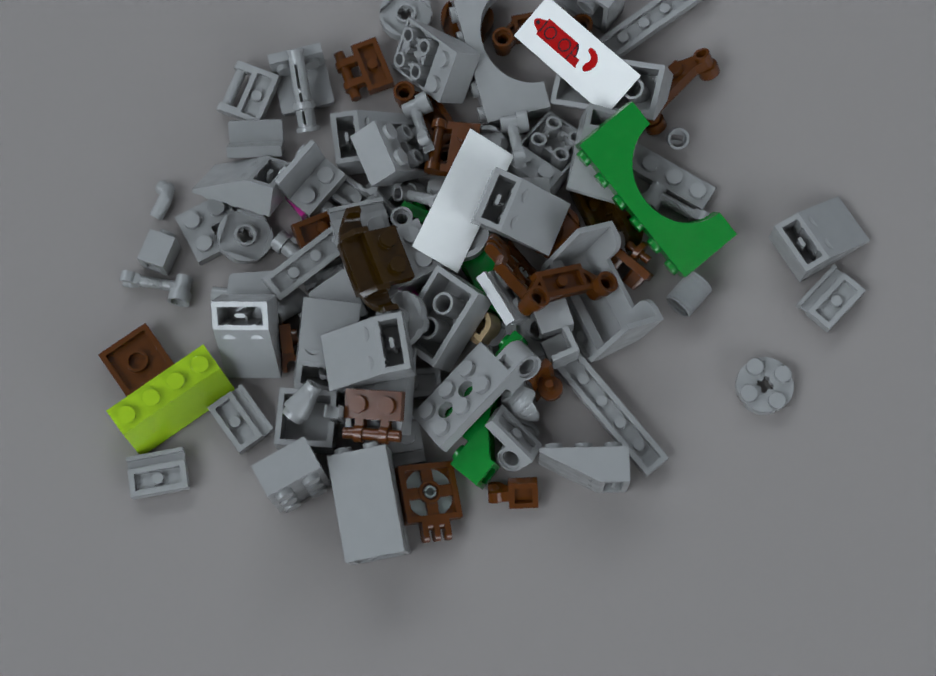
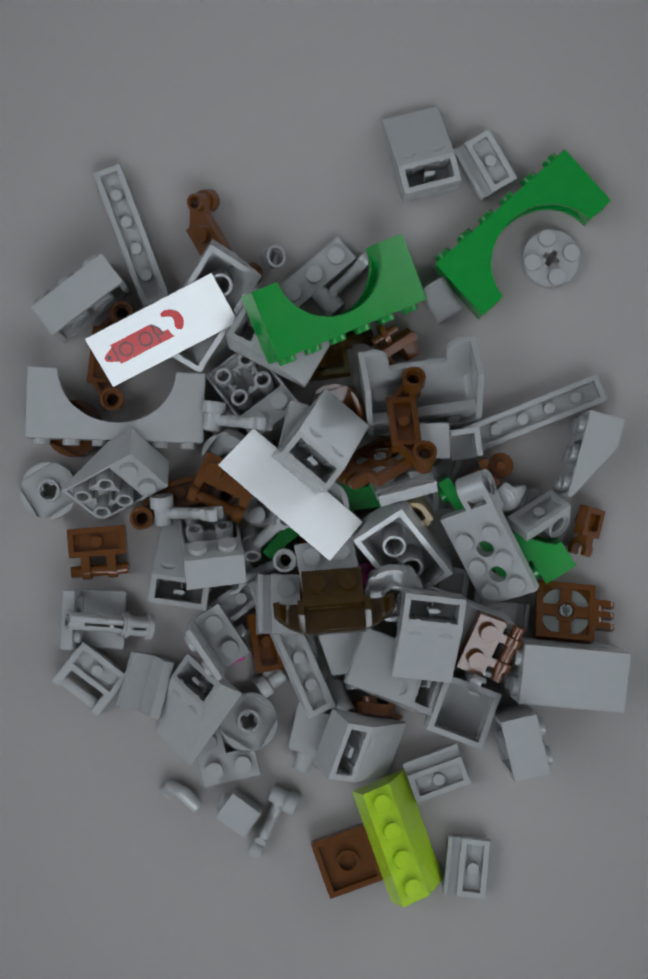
camera: 75 degrees left, 15 degrees up
(301, 403) = (452, 713): light grey cone -> none
(833, 366) = (557, 187): none -> green arch

